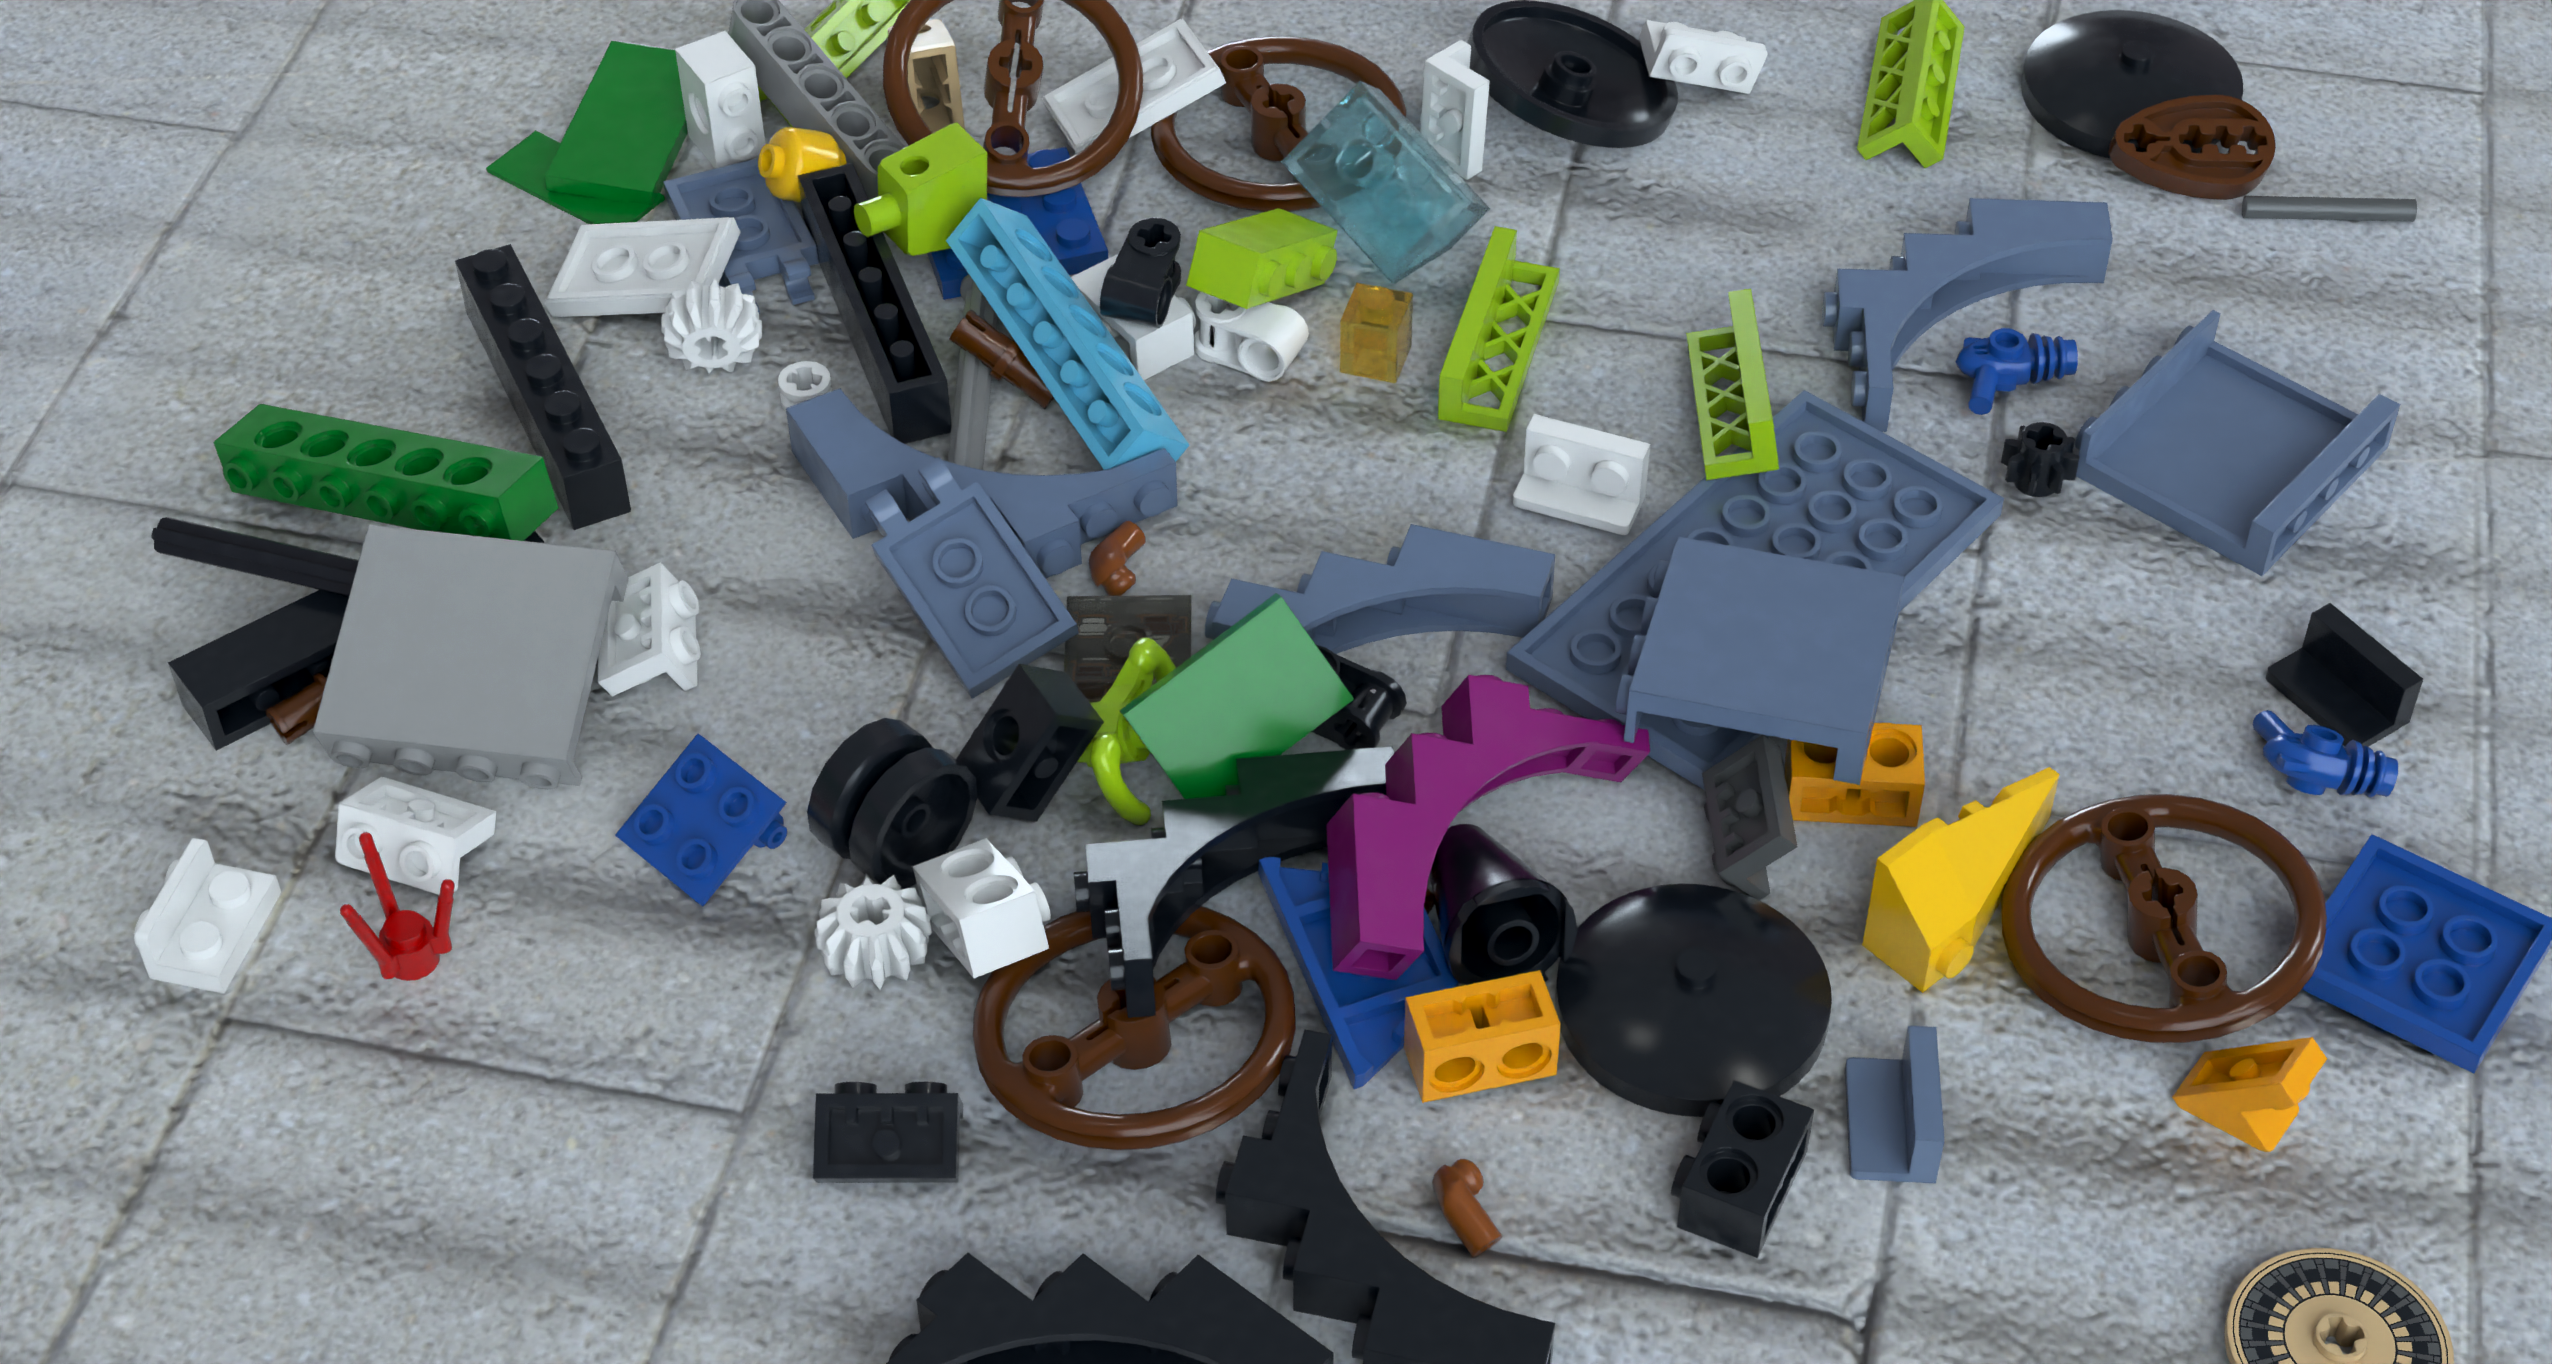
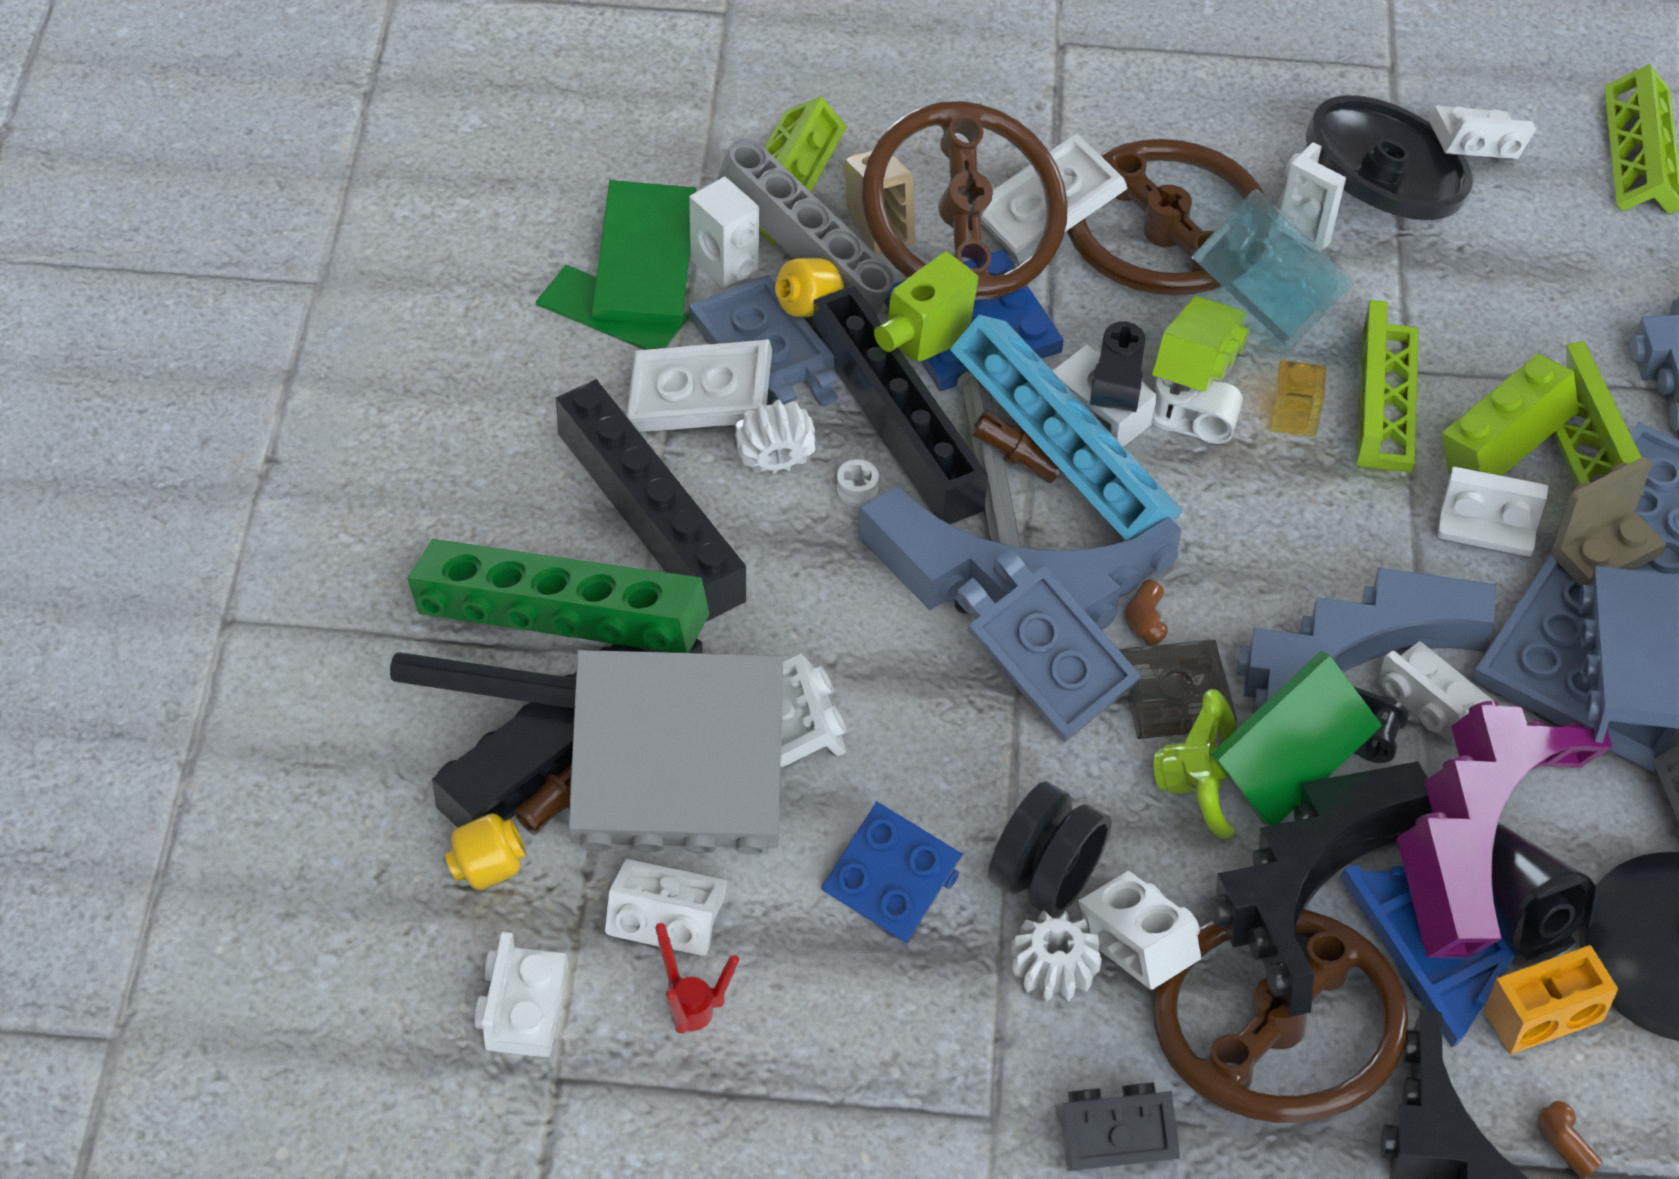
camera: 10 degrees left, 5 degrees up
(214, 753) = (486, 851): none -> yellow head
(1029, 742) = (1163, 776): black brick -> none
(1435, 661) = (1429, 688): none -> white bracket
(1637, 369) = (1512, 418): none -> lime brick
(1710, 488) = (1604, 527): none -> dark tan bracket

